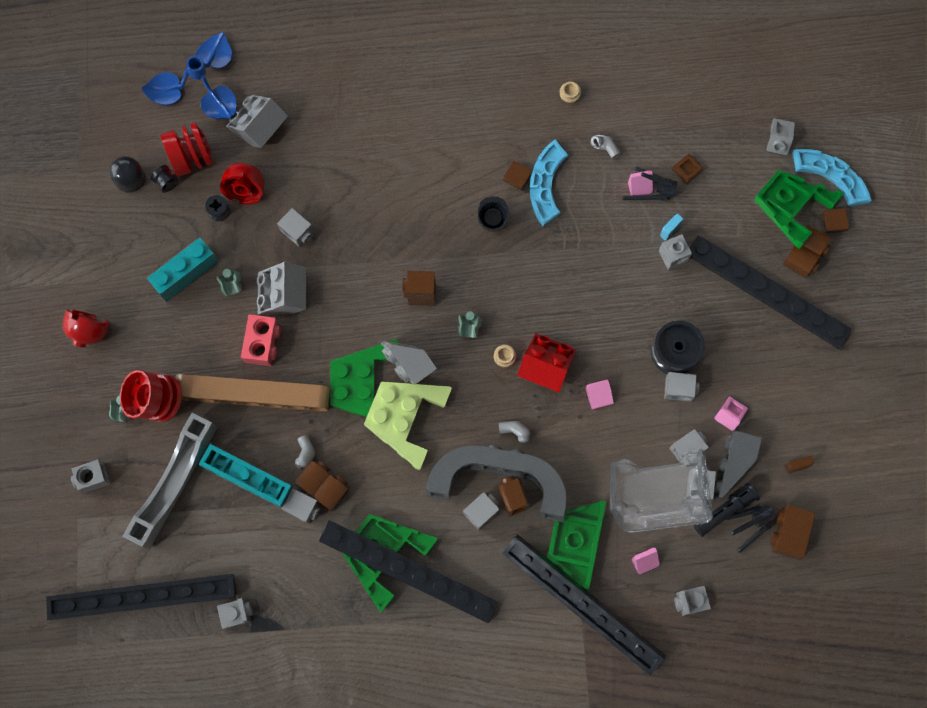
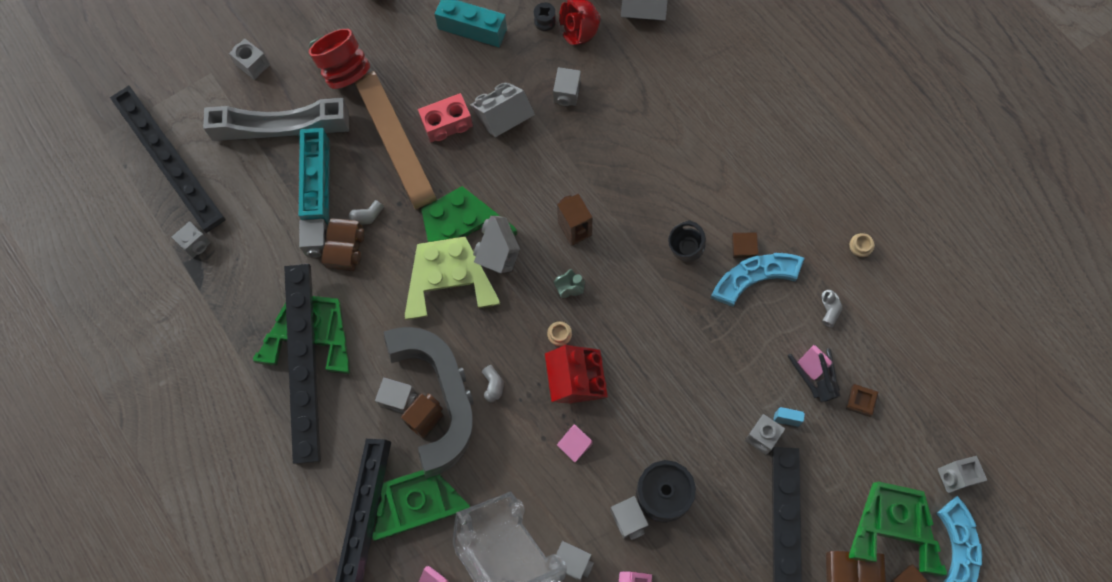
camera: 60 degrees right, 5 degrees down
(230, 282) = (484, 64): sand green arm -> none

